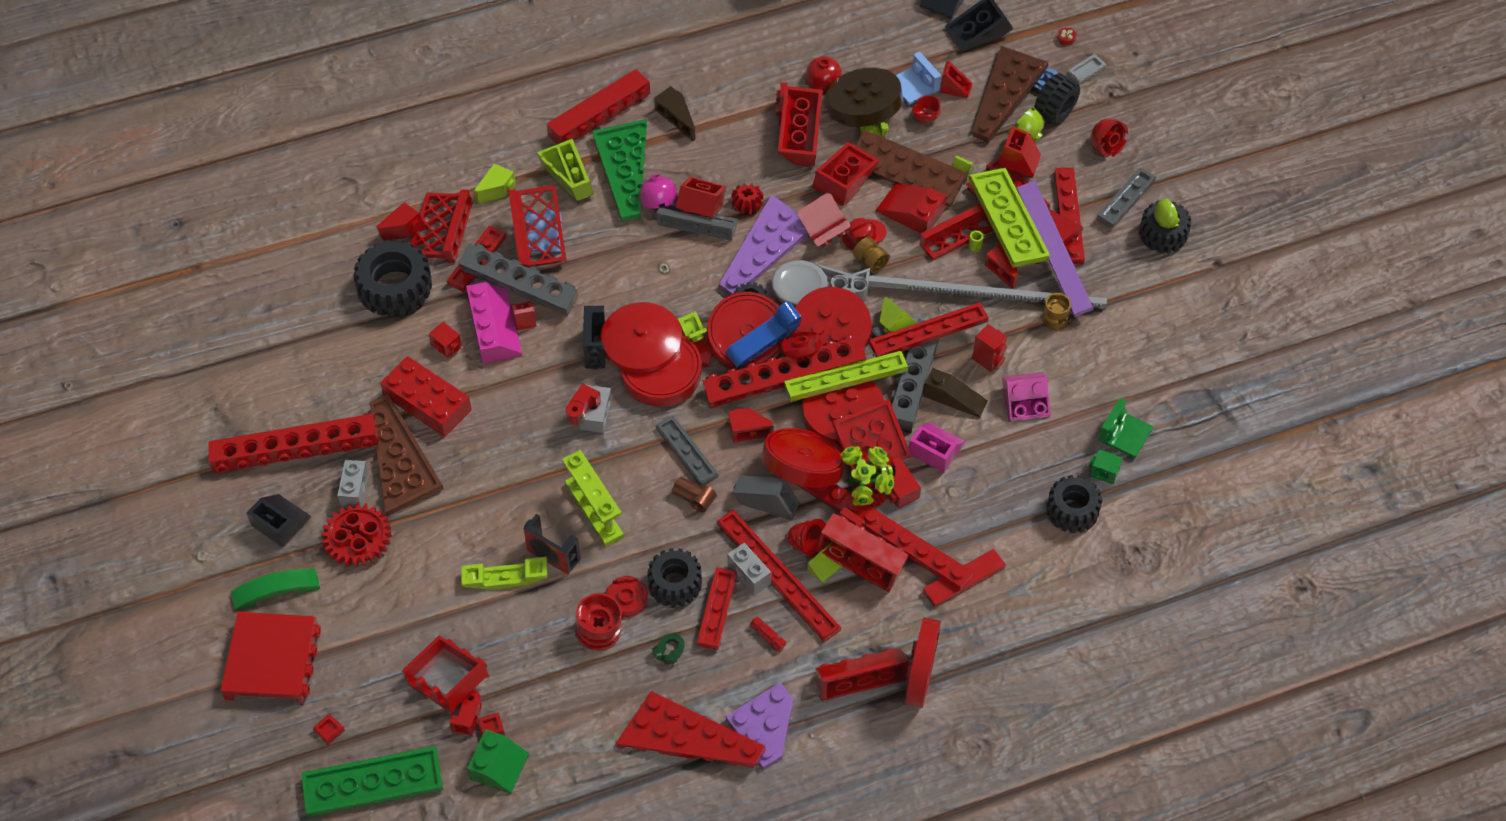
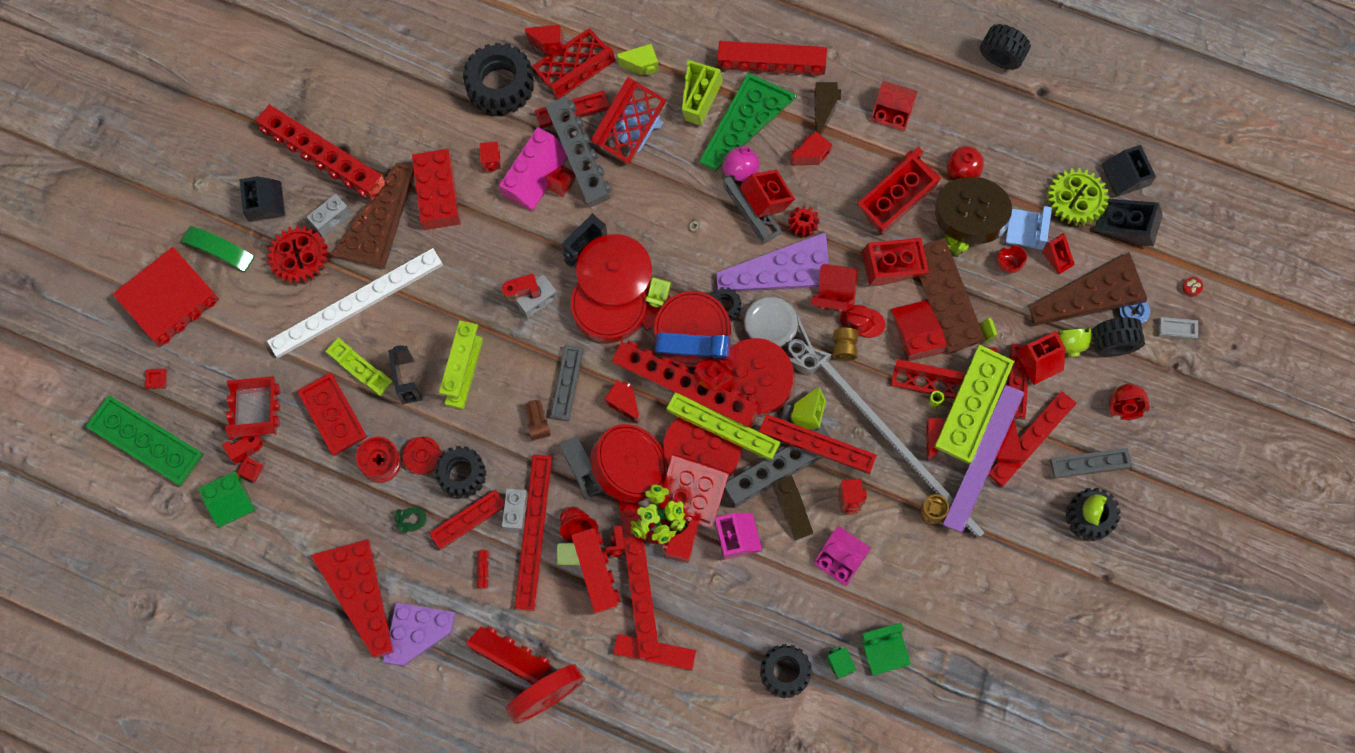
camera: 45 degrees right, 15 degrees up
(444, 535) = (355, 303): none -> white plate
(518, 626) = (332, 414): none -> red plate
(701, 147) = (812, 152): none -> red slope
(728, 73) = (893, 105): none -> red slope
(939, 33) = (1063, 187): none -> lime gear

